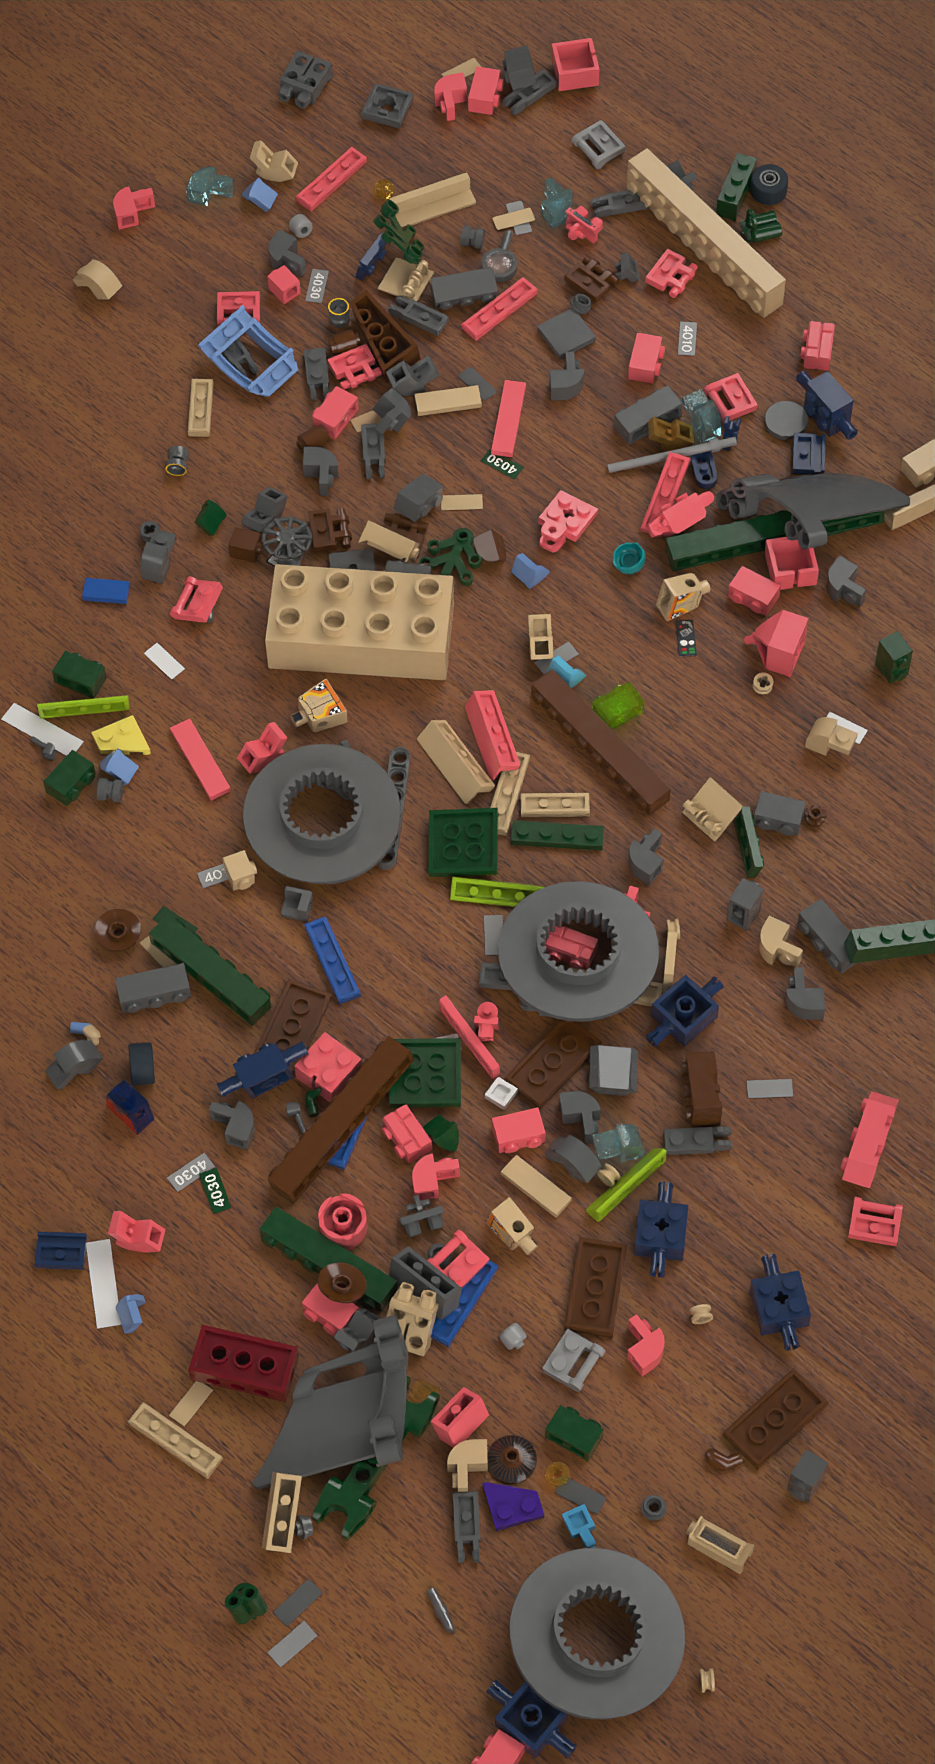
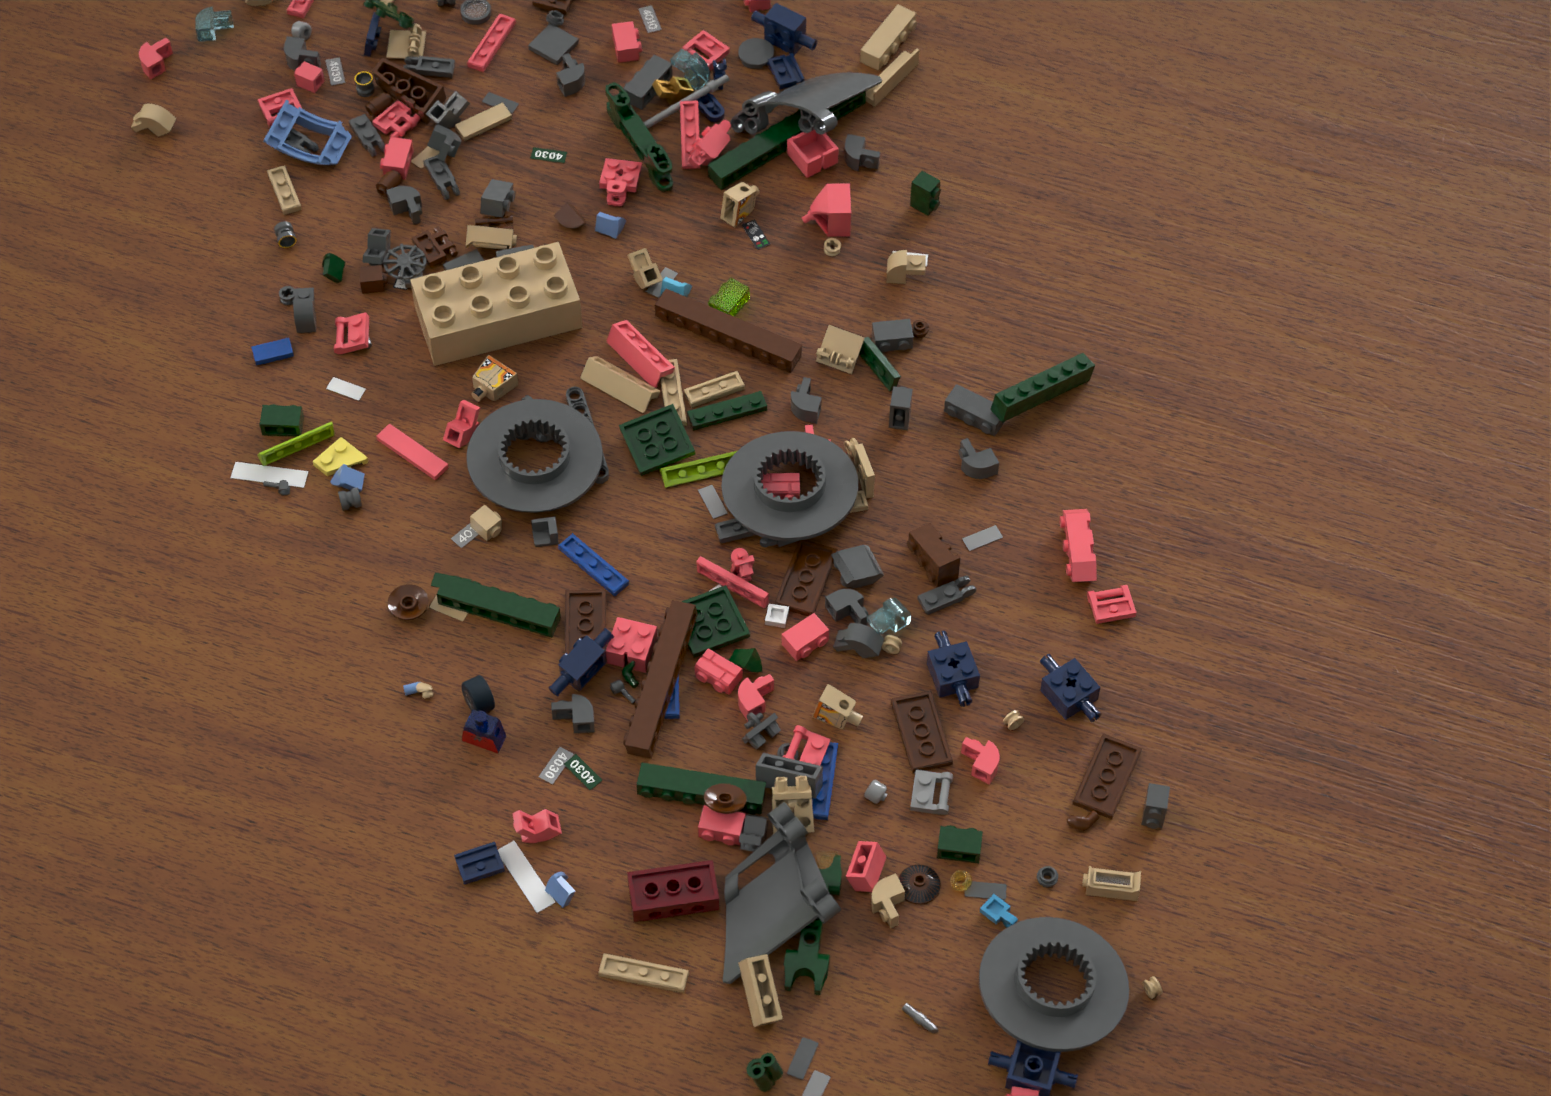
camera: 25 degrees left, 5 degrees down
(69, 778) = (312, 501): dark green brick -> none
(73, 1059) = (418, 713): dark grey brick -> none
(153, 988) = (458, 636): dark grey brick -> none
(190, 1403) = (641, 940): tan sticker -> none
(260, 194) = (257, 16): medium blue tile -> none
(303, 1527) = (783, 997): dark grey plate -> none
(332, 1217) = (700, 752): coral brick -> none
(453, 558) = (545, 220): dark green plant -> none
(462, 502) = (531, 192): tan sticker -> none
(463, 288) = (456, 35): dark grey brick -> none
(466, 1523) = (909, 945): dark grey hinge -> none
(508, 418) = (538, 119): coral tile -> none
(512, 1505) = (936, 918): dark purple wing -> none
(536, 1186) = (838, 674): tan tile -> none
(605, 478) = (639, 137): none -> dark green piece
(627, 1184) = (908, 646): lime slope -> none
(629, 558) = (685, 189): teal hair -> none
(684, 1010) = (891, 502): dark blue brick -> none
(754, 591) = (793, 182): coral brick -> none
(773, 944) = (935, 432): tan brick -> none

